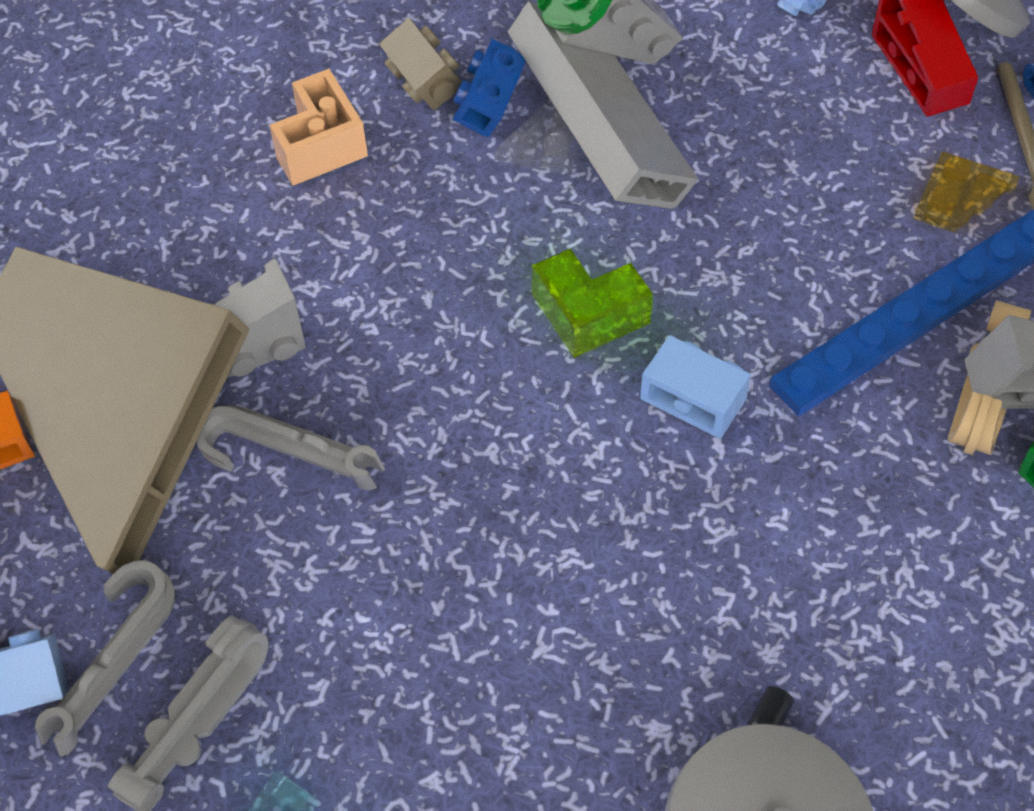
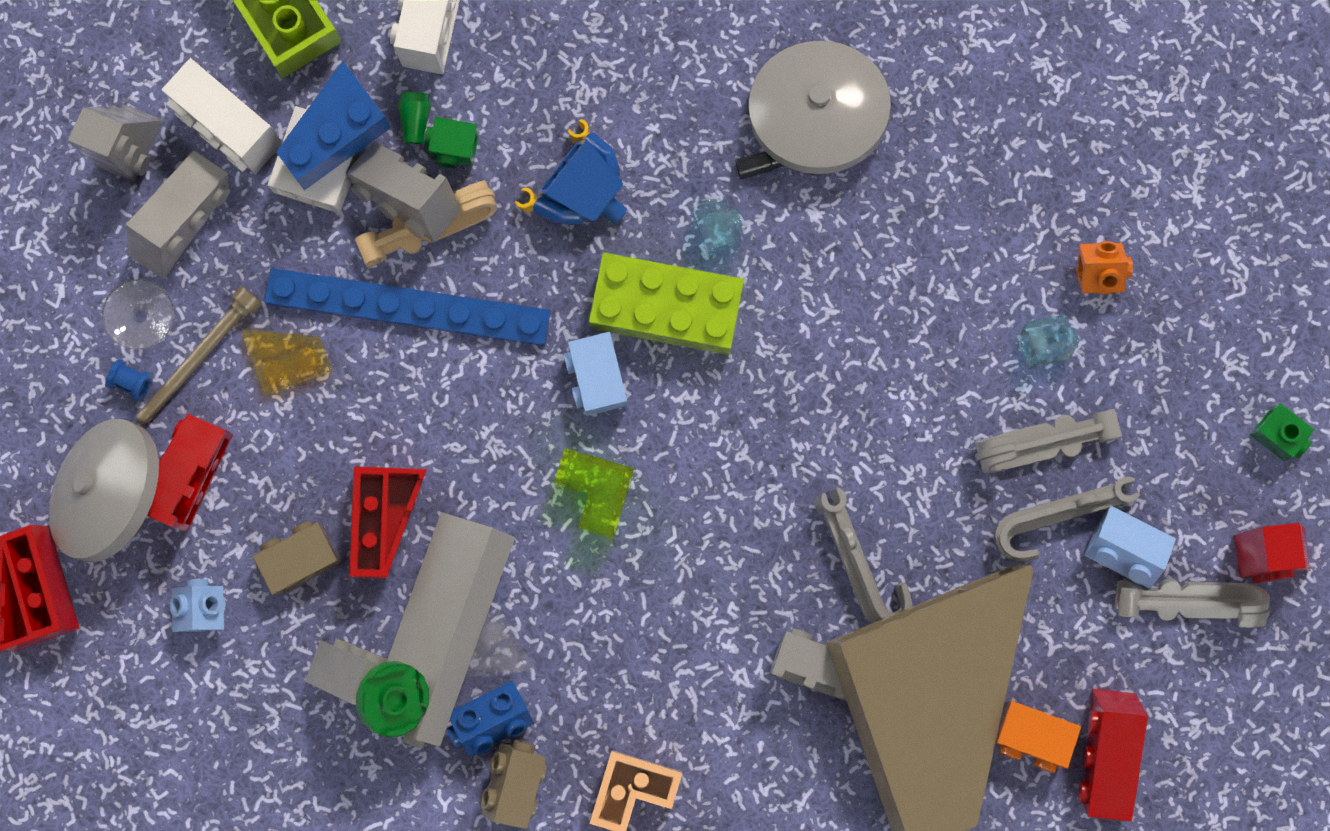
camera: 135 degrees left, 25 degrees up
(702, 499) = (666, 303): none -> lime brick
(736, 613) = (717, 226): none -> clear light blue brick
(743, 137) = (379, 516): none -> red wedge
(768, 71) = (296, 558): none -> dark tan brick
(907, 533) = (580, 184): none -> blue torso

